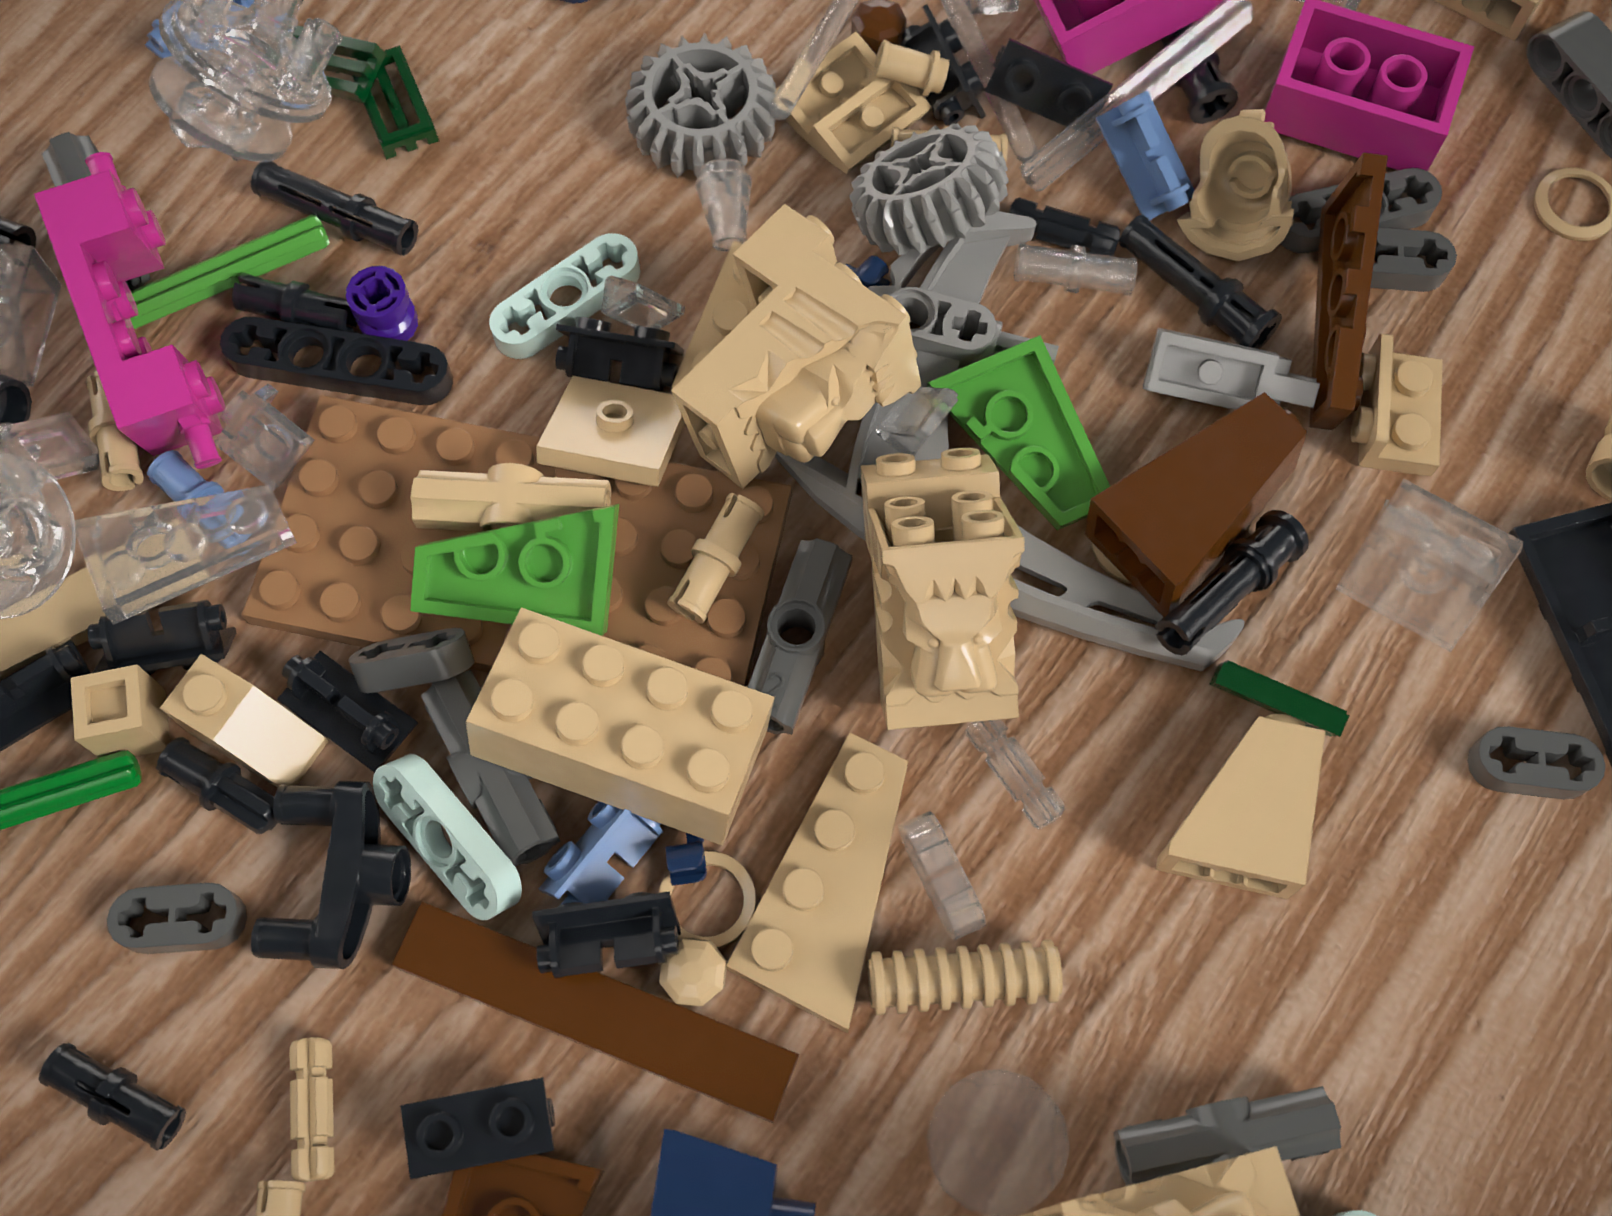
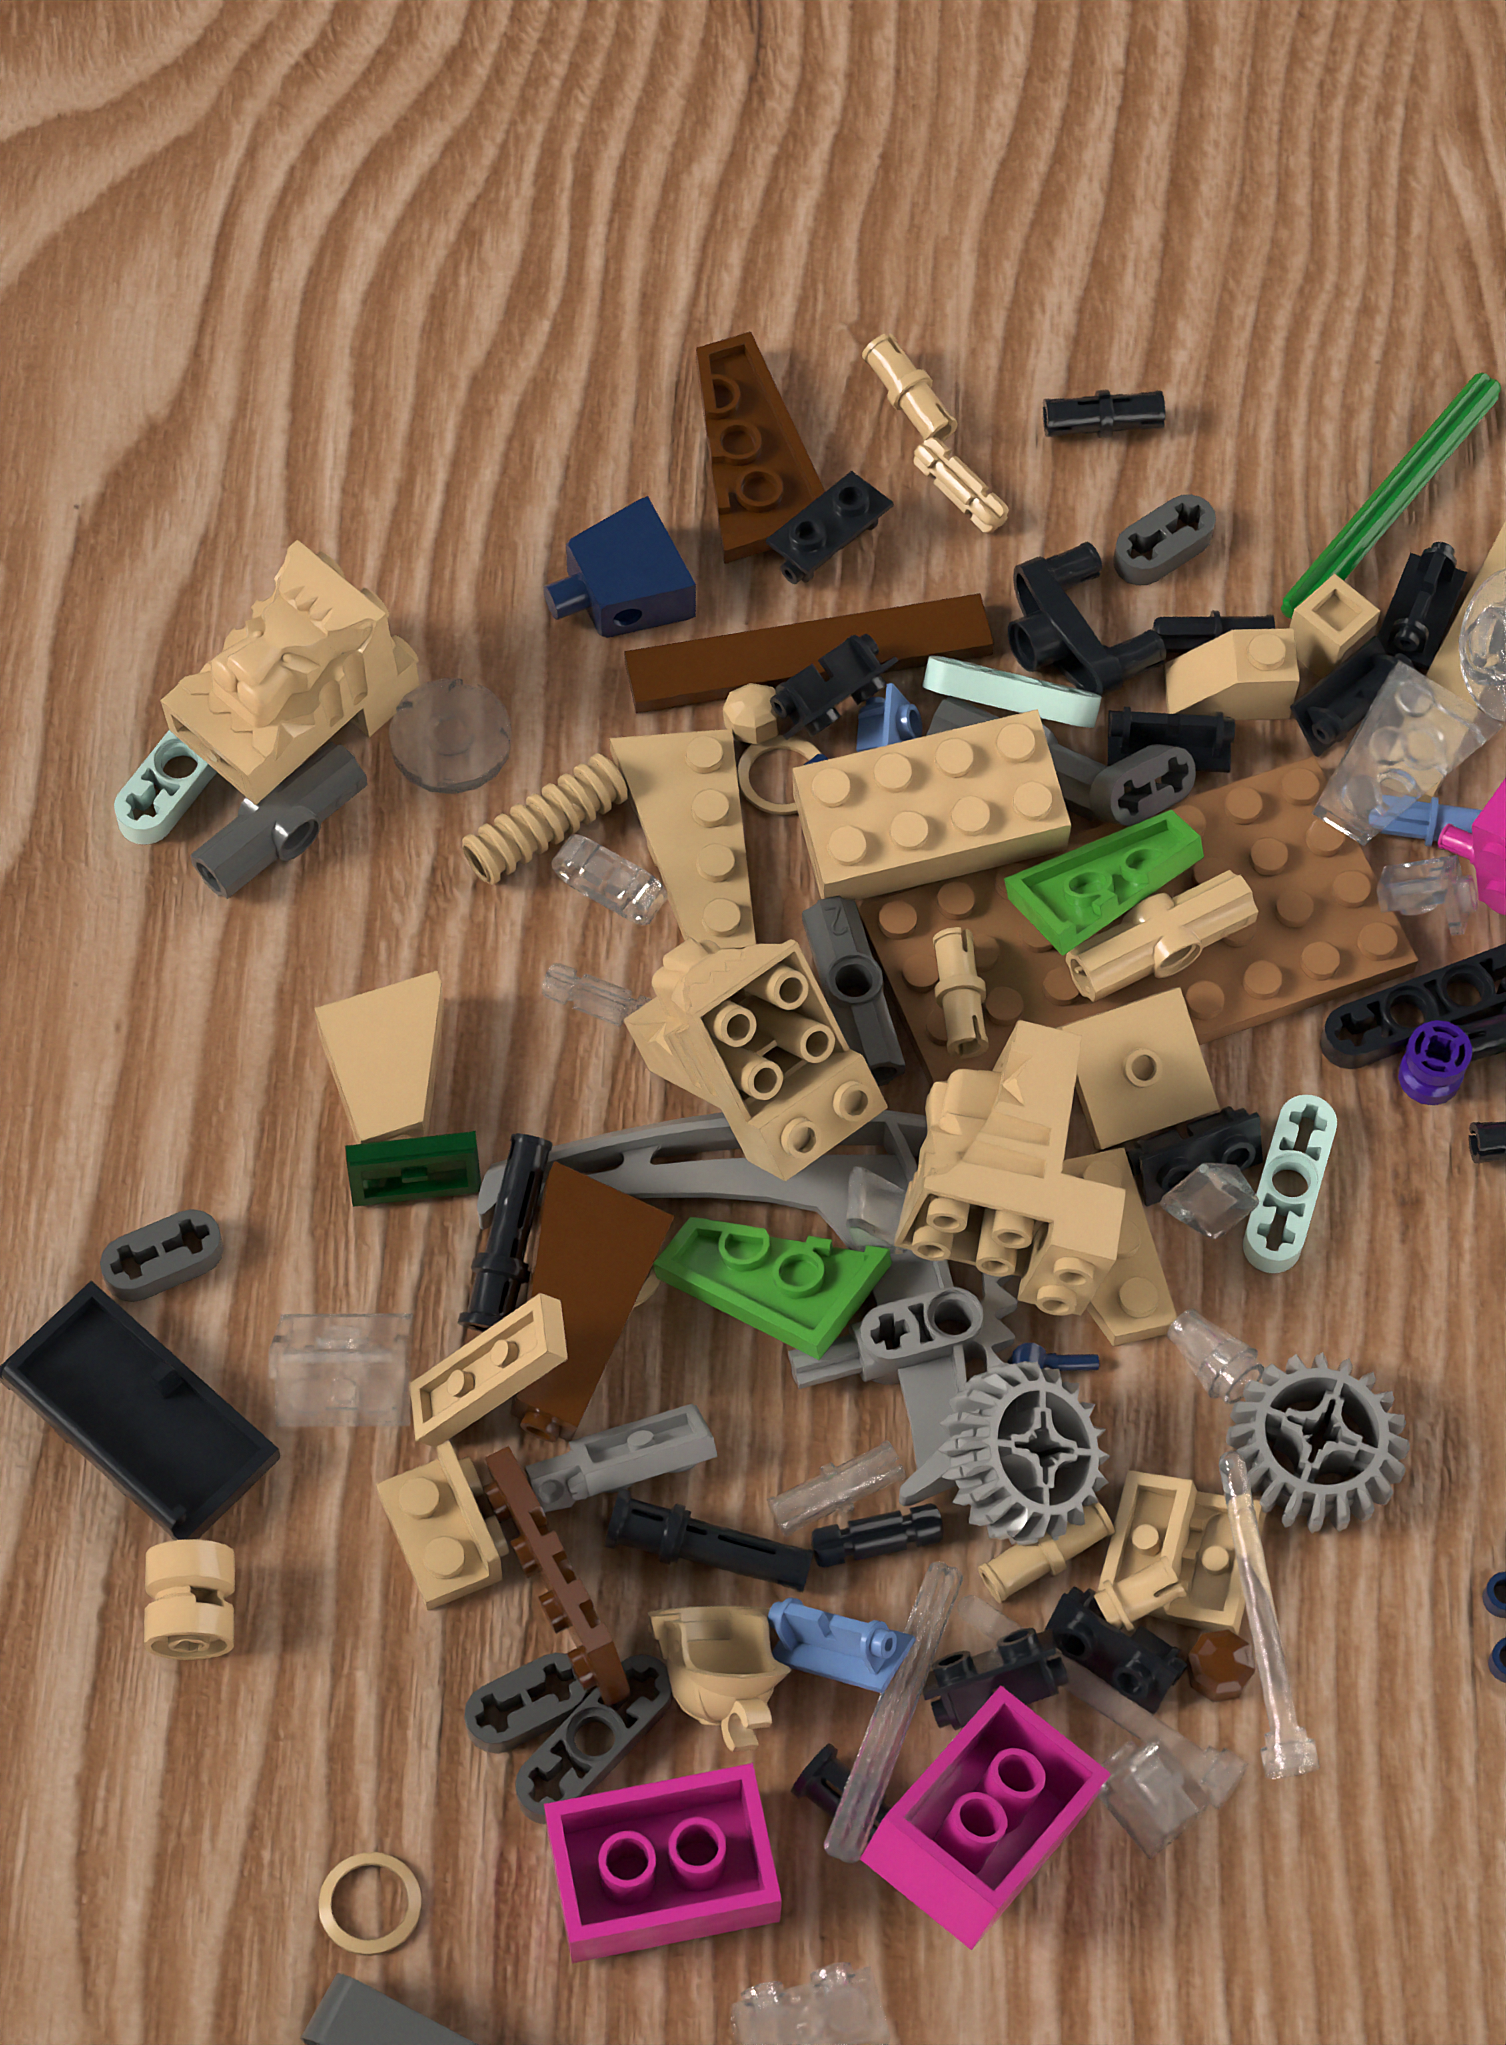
camera: 145 degrees right, 5 degrees down
(1321, 457) = (488, 1370): none -> tan plate

